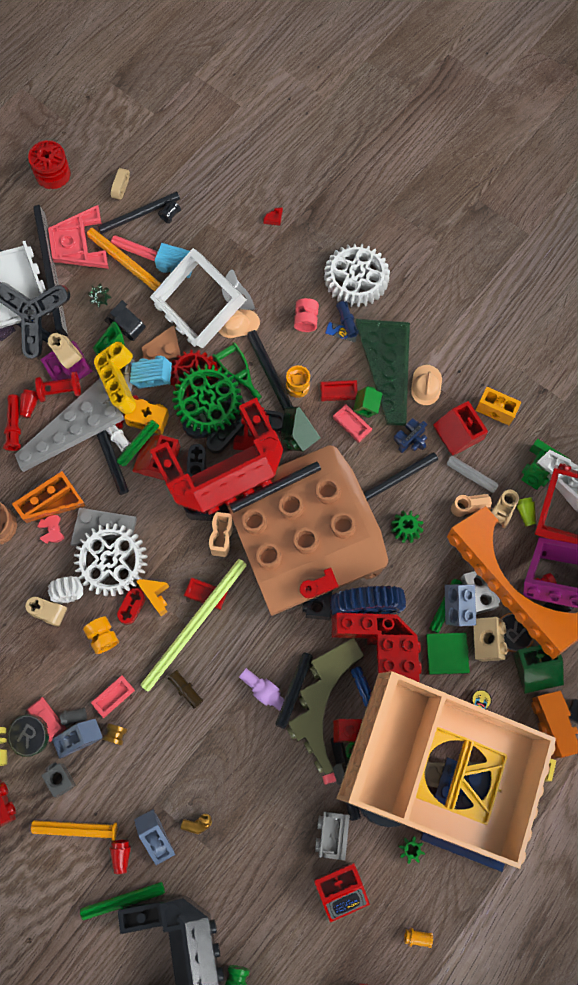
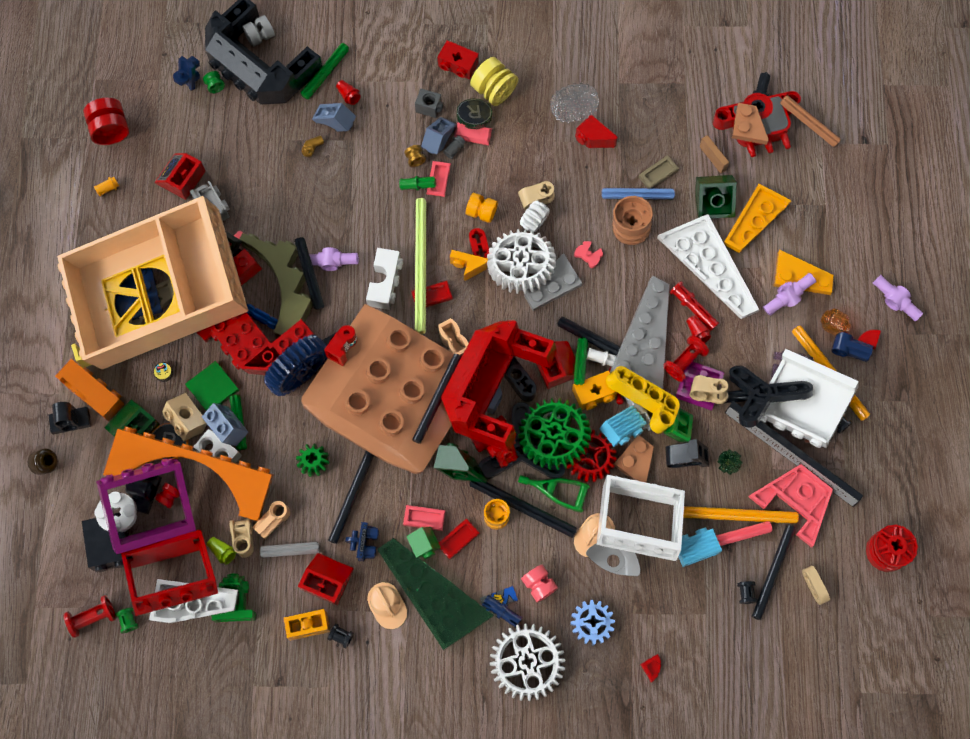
camera: 145 degrees right, 0 degrees up
(49, 499) = (607, 269): orange wedge -> none
(74, 829) = (391, 86): light orange axle -> none
(134, 704) = (417, 183): none -> green axle
(185, 689) = (390, 219): dark brown pin -> none
(245, 622) = (381, 294): none -> white arch
(290, 267) = (603, 621): none -> light blue gear
(476, 384) = (340, 635): none -> black bush

